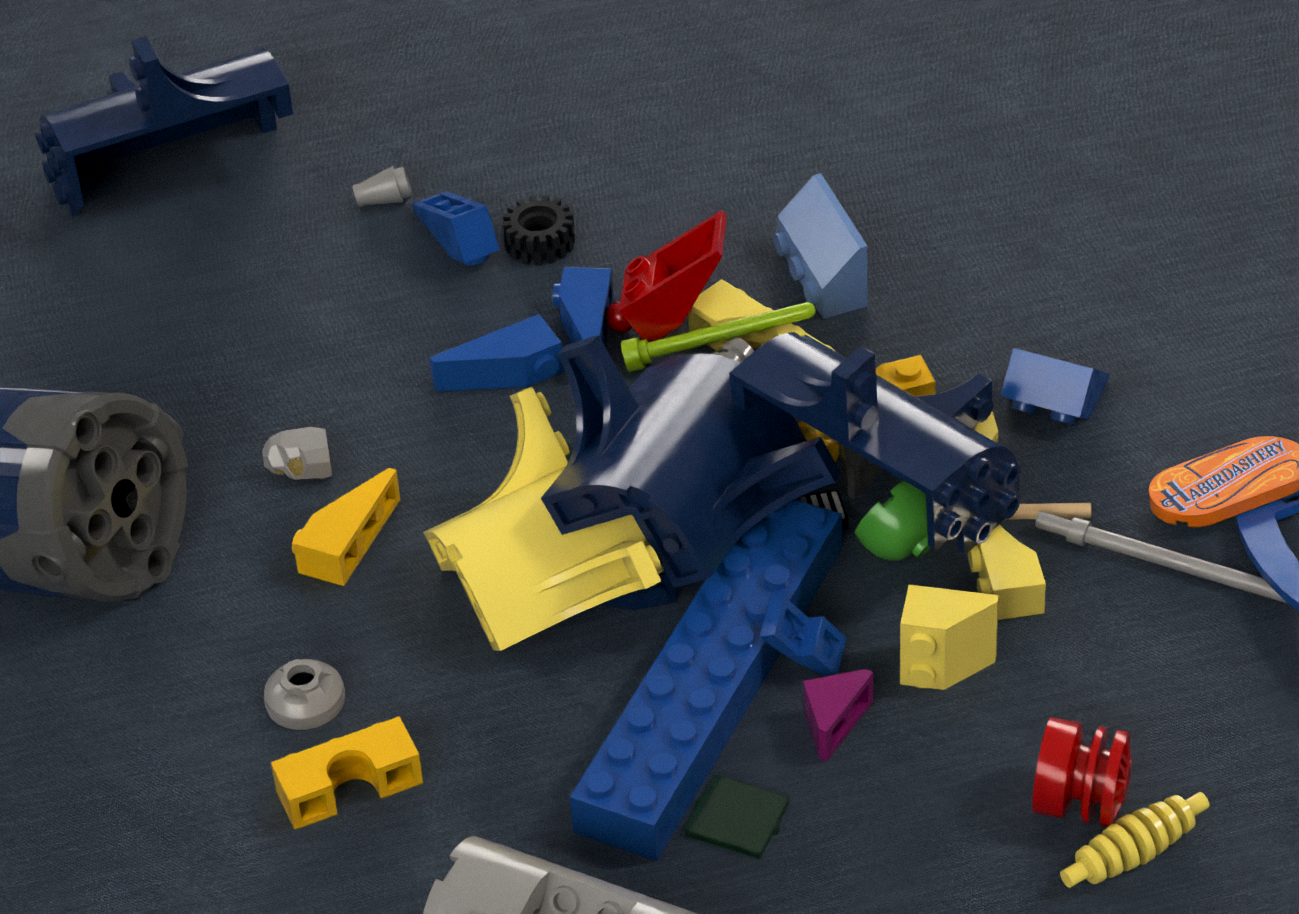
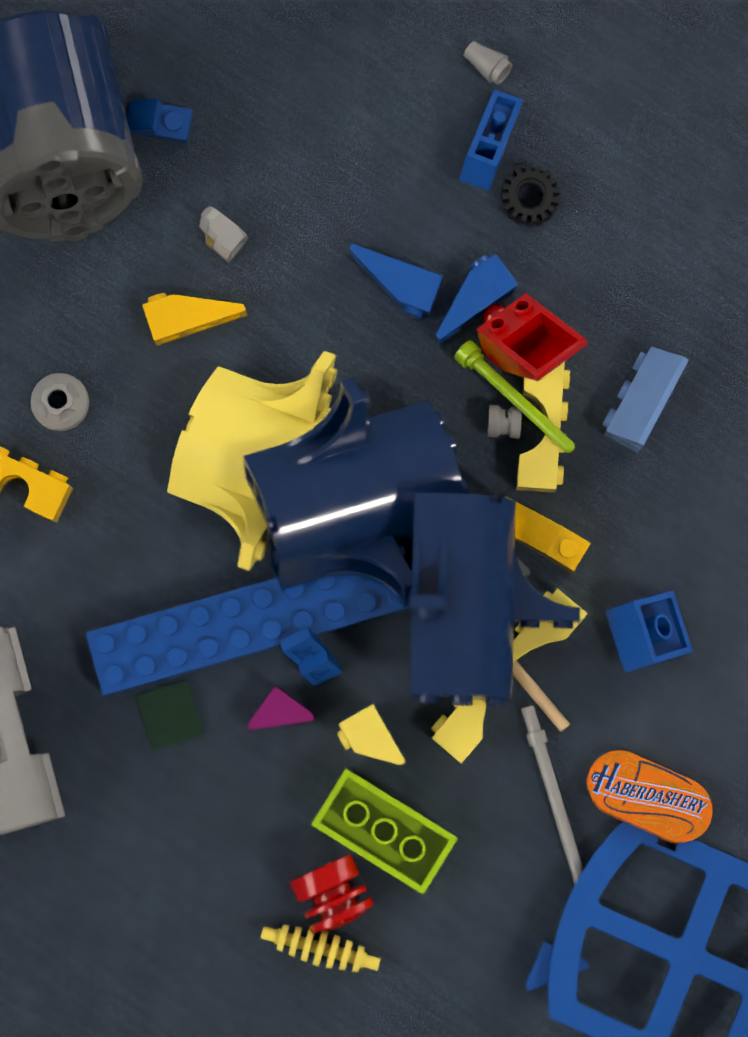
camera: 50 degrees right, 40 degrees up
(1079, 678) = (384, 831): none -> lime brick

